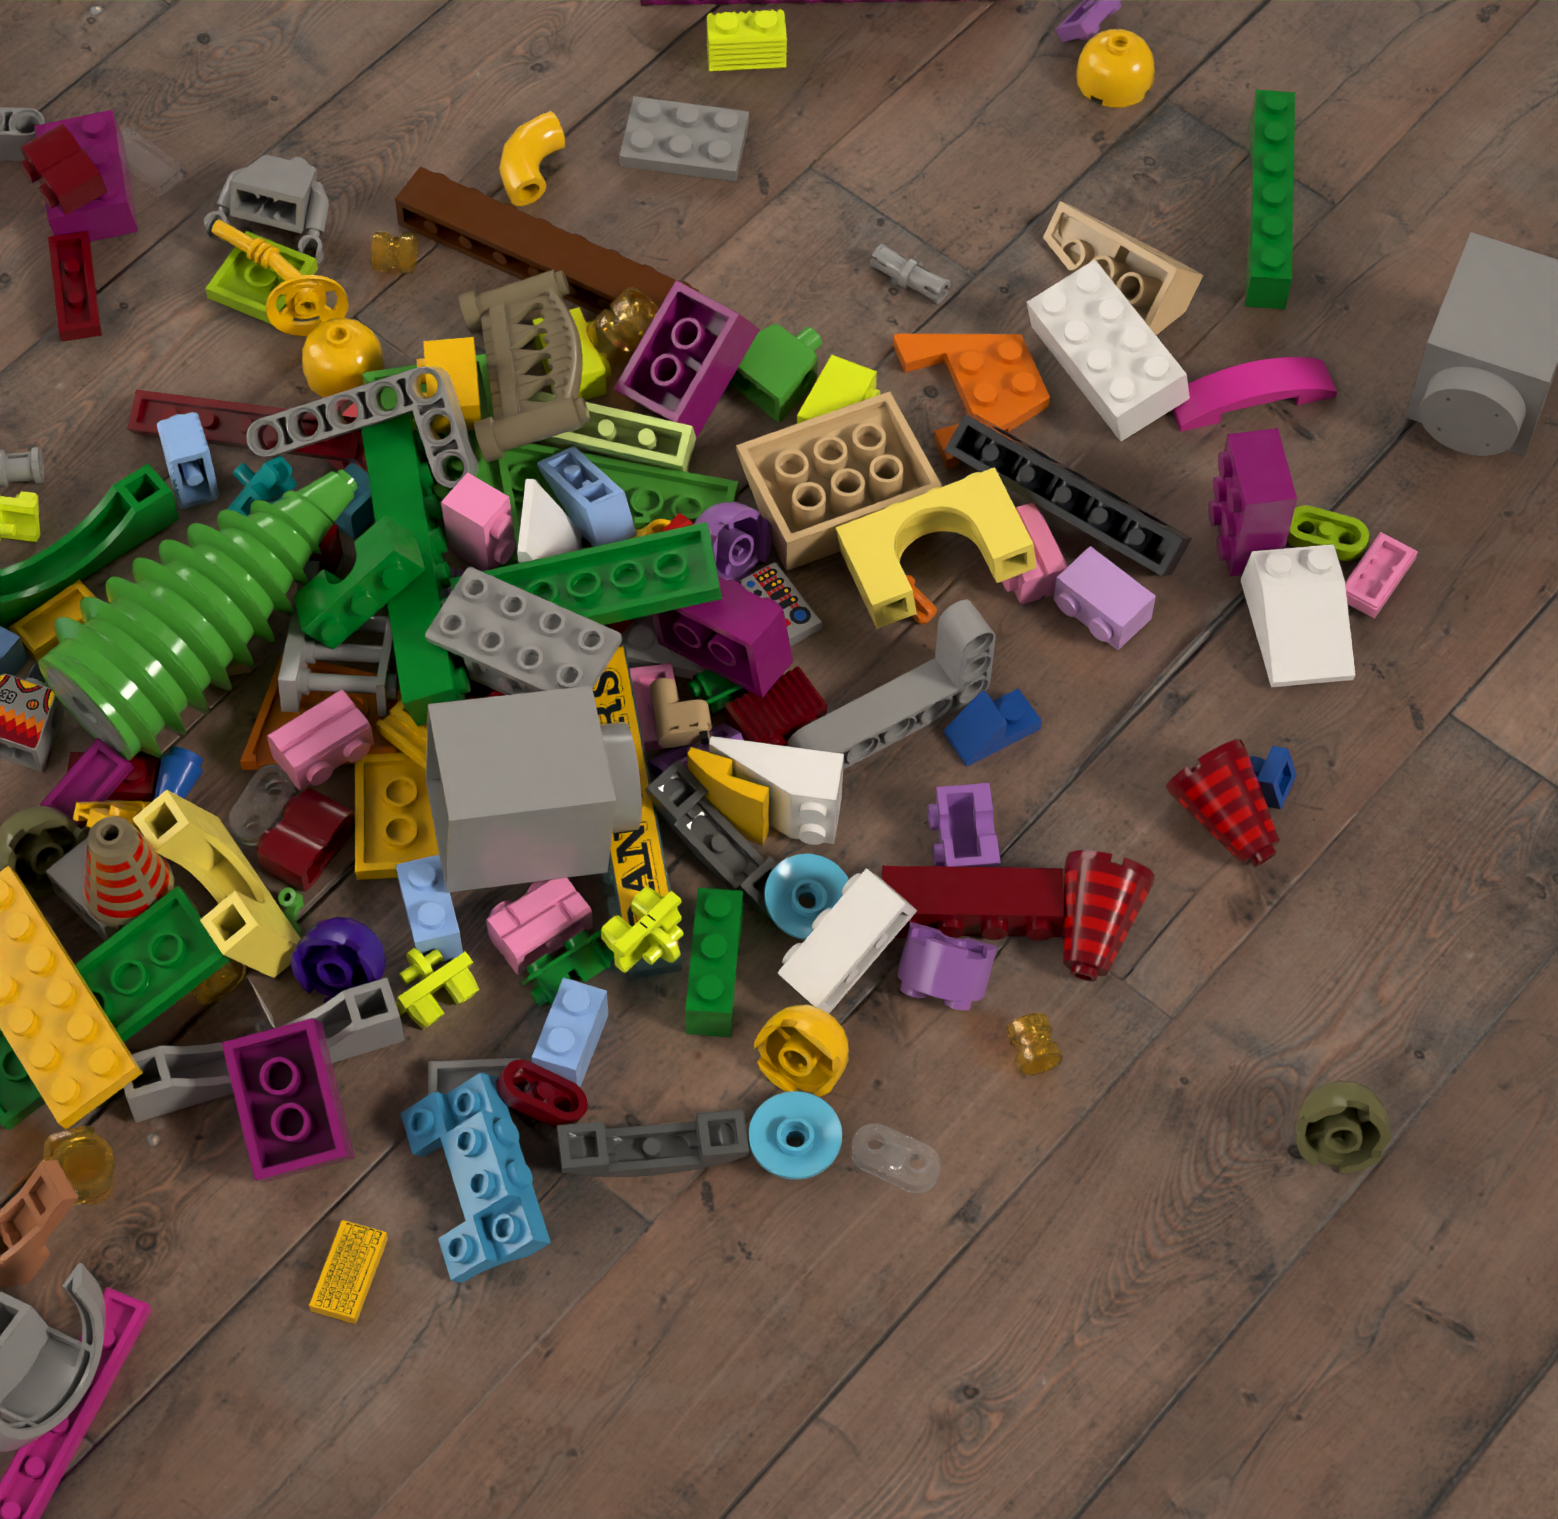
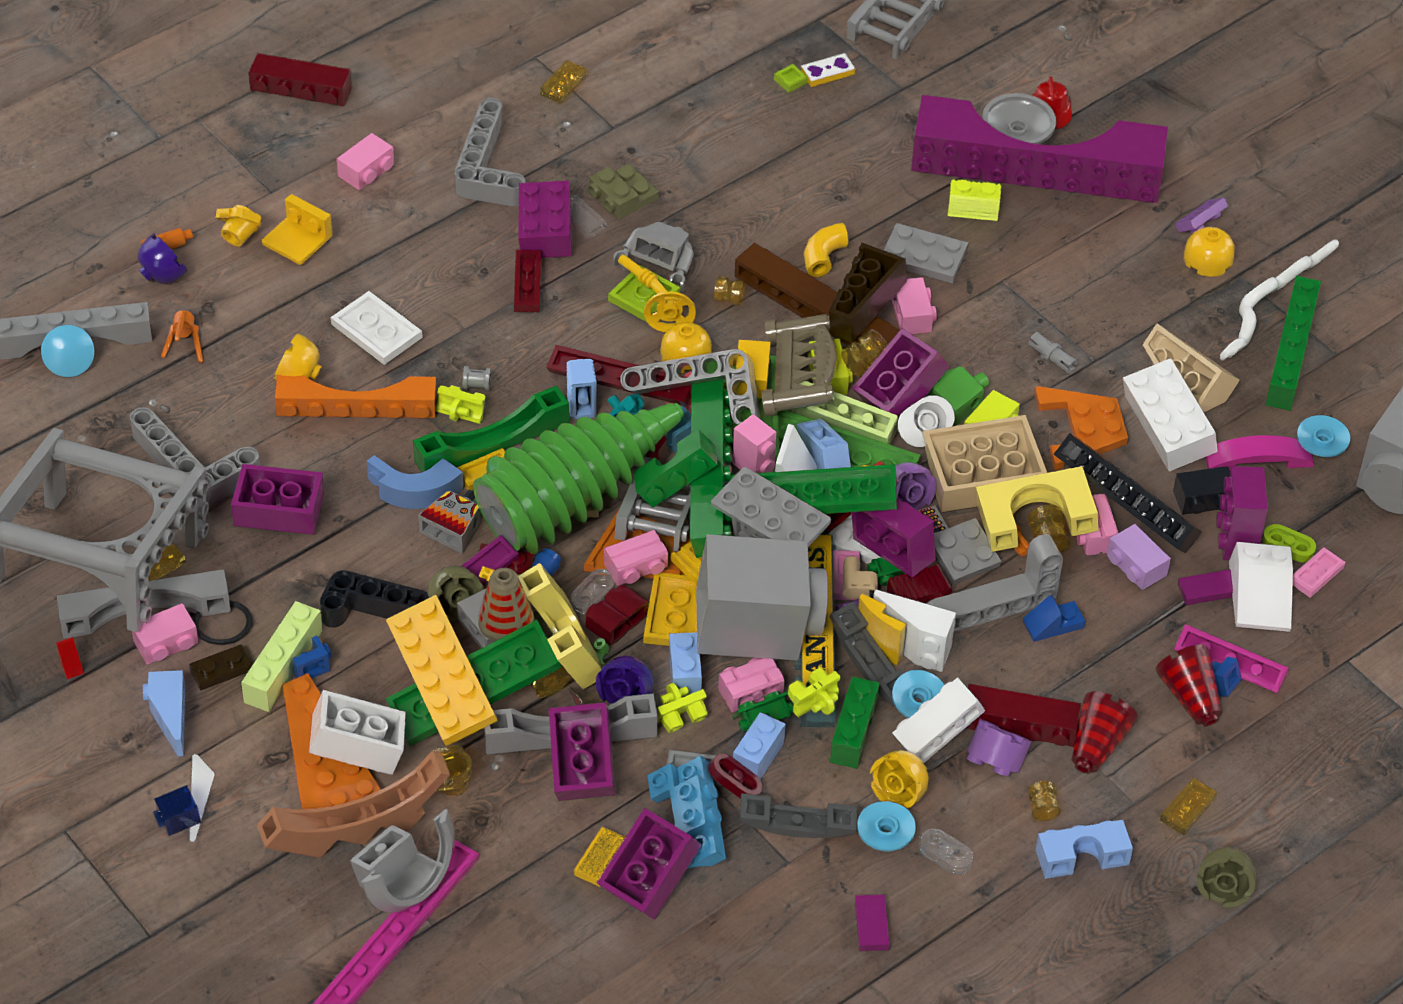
camera: 10 degrees right, 10 degrees down
(62, 169) = (533, 209): dark red brick -> none
(199, 108) = (622, 190): none -> olive plate
(428, 1283) = (649, 863): none -> magenta brick
(608, 222) = (866, 291): none -> dark brown wedge
(683, 231) = (914, 307): none -> bright pink brick
(735, 417) = (924, 415): none -> white piece
(801, 1307) = (871, 922): none -> magenta tile
(834, 633) = (964, 551): none -> light grey plate
(958, 572) = (1050, 521): none -> clear yellow wheel
(964, 826) = (1024, 670): medium lavender cylinder -> none
(1142, 1096) = (1105, 841): none -> light blue arch
(1179, 466) = (1200, 489): none -> black brick
(1194, 138) = (1270, 286): none -> white animal
(1214, 628) = (1206, 587): none -> magenta tile
(1257, 1011) = (1188, 806): none -> clear yellow plate
(1311, 752) = (1252, 666): none -> dark pink slope
(1346, 334) = (1323, 436): none -> medium azure dish

